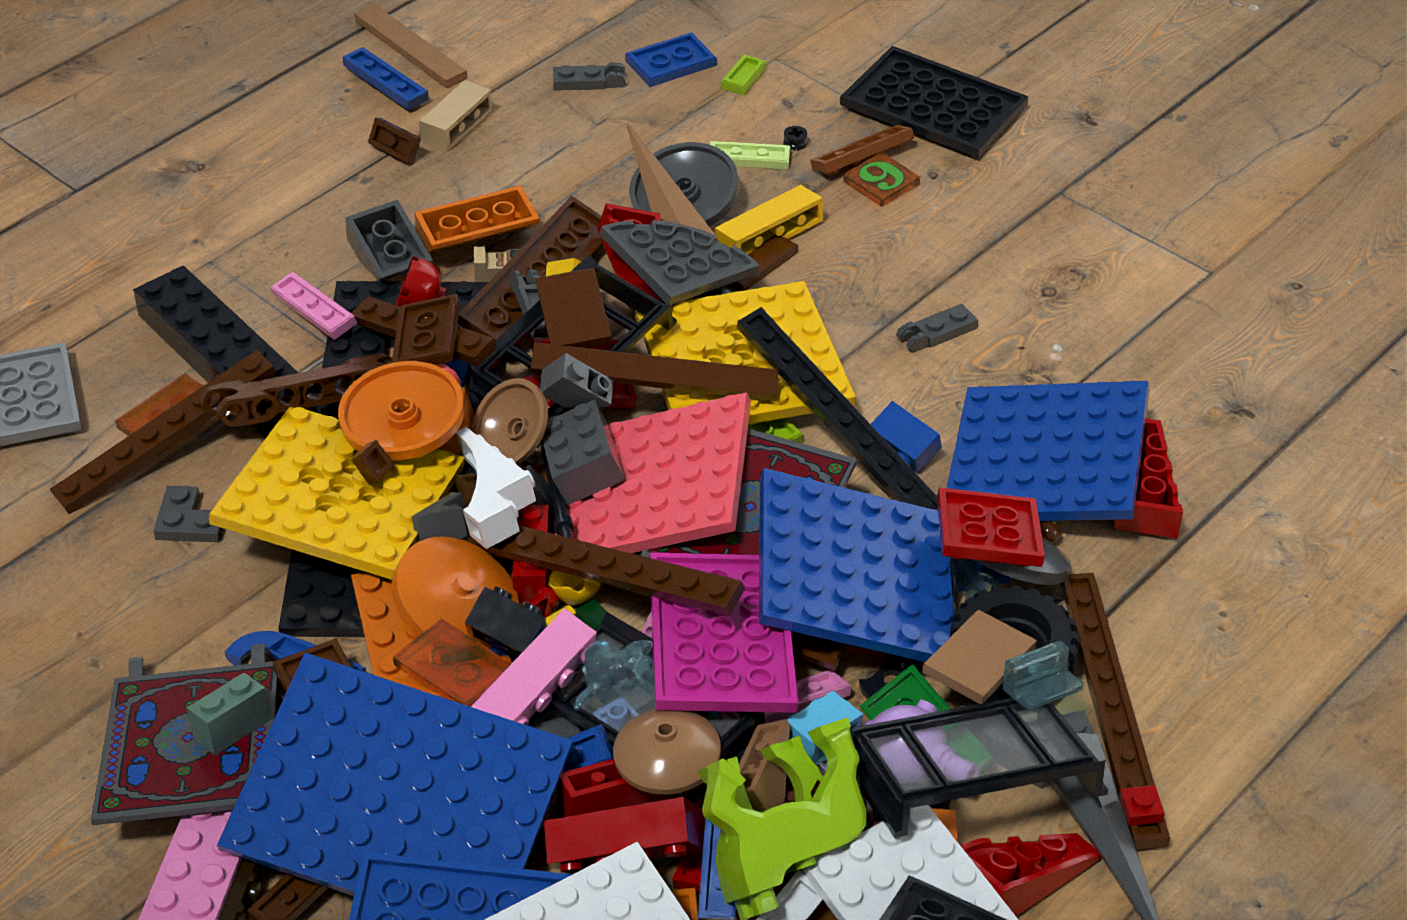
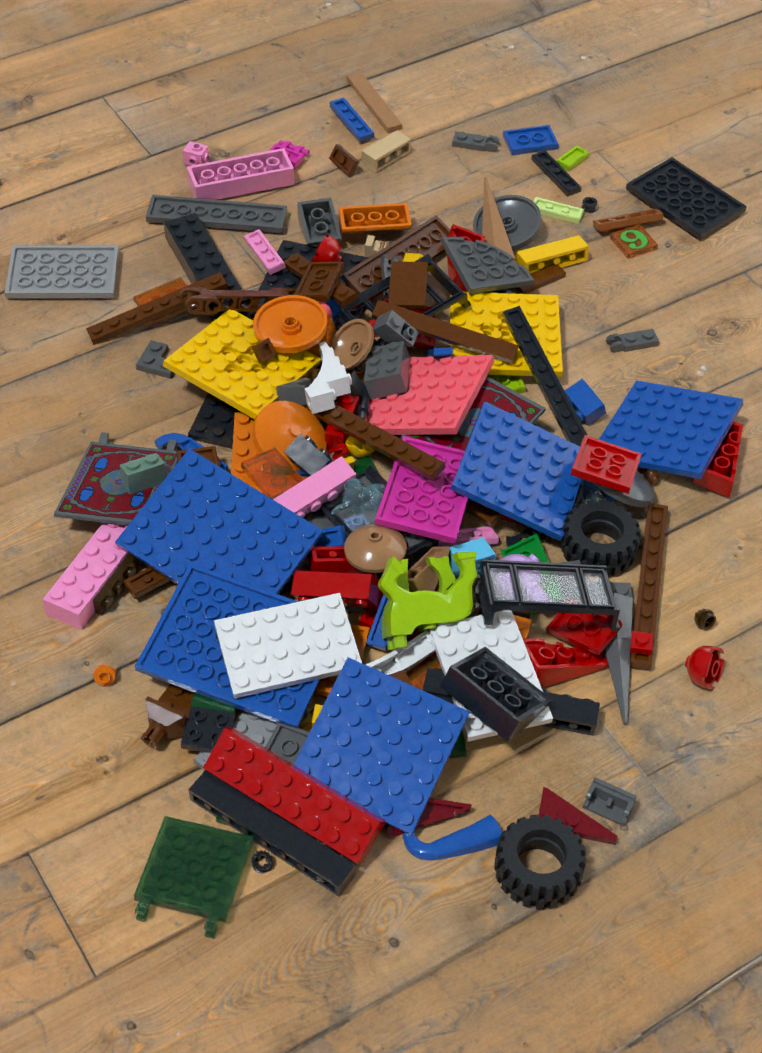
camera: 15 degrees right, 5 degrees up
(152, 175) = (195, 154): none -> bright pink brick
(217, 259) = (219, 213): none -> dark grey plate
(235, 194) = (241, 175): none -> bright pink brick
(300, 147) = (295, 153): none -> dark pink plate
(653, 406) = (440, 352): none -> blue tile
(727, 101) = (556, 173): none -> black tile
(976, 656) = (573, 537): medium nougat tile -> none
(1040, 676) = (604, 555): clear light blue panel -> none
(1047, 809) = (583, 630): none -> red plate
(1219, 741) = (705, 619): none -> dark brown plate
(1252, 819) = (705, 665): none -> red cylinder

